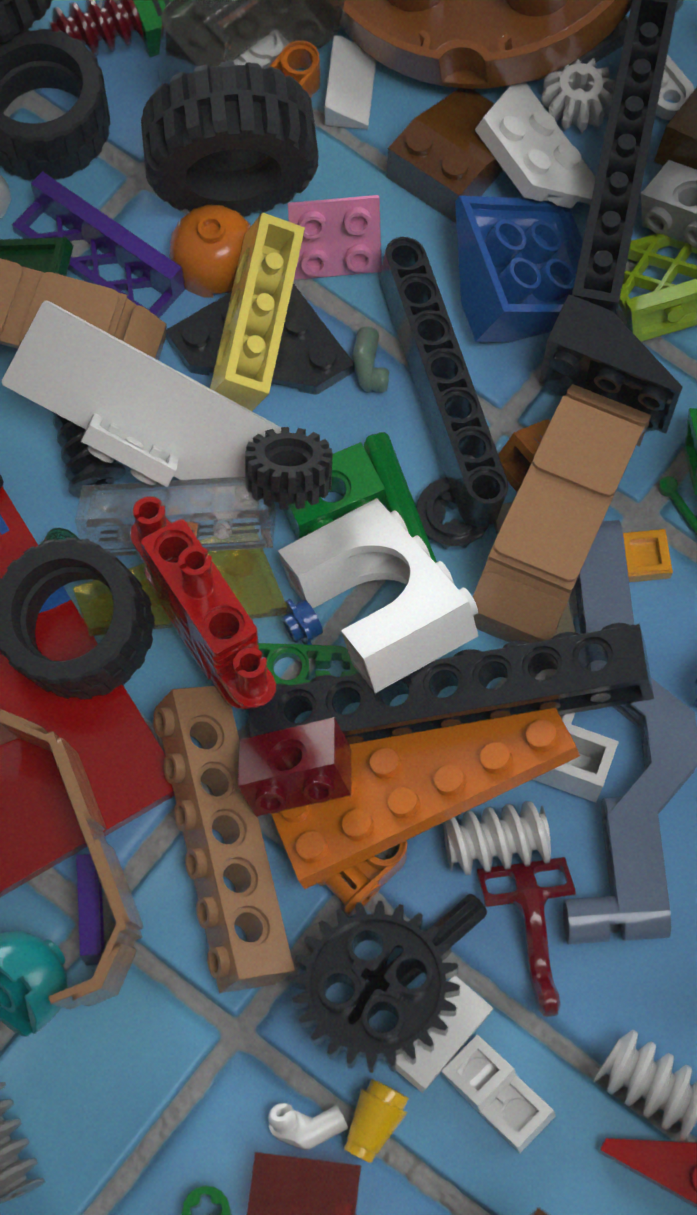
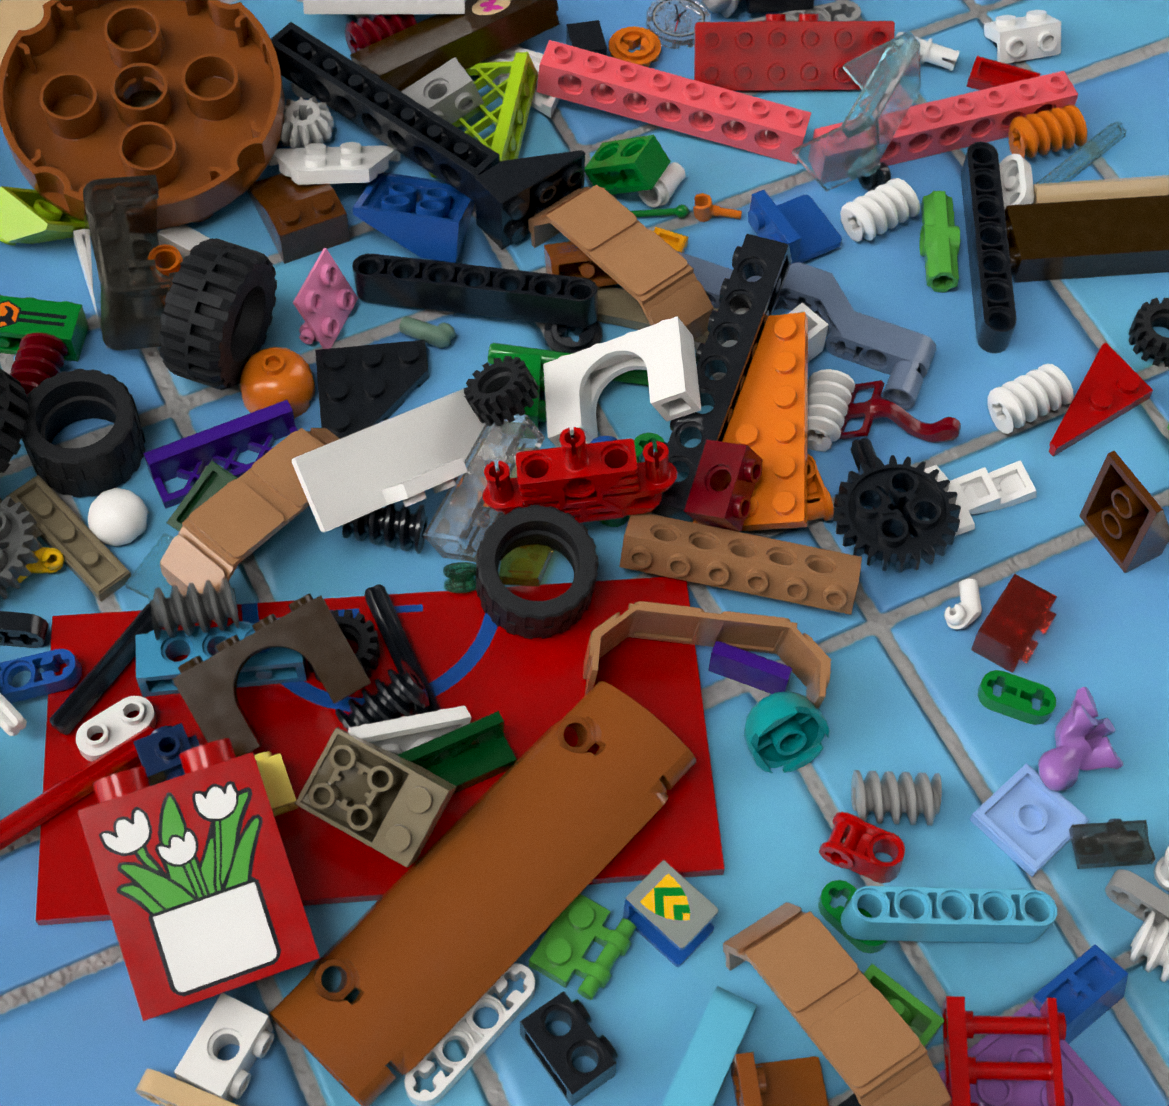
camera: 65 degrees left, 10 degrees down
(257, 311) = (359, 361): light yellow brick -> none
(375, 1119) = (980, 562): yellow cone -> none

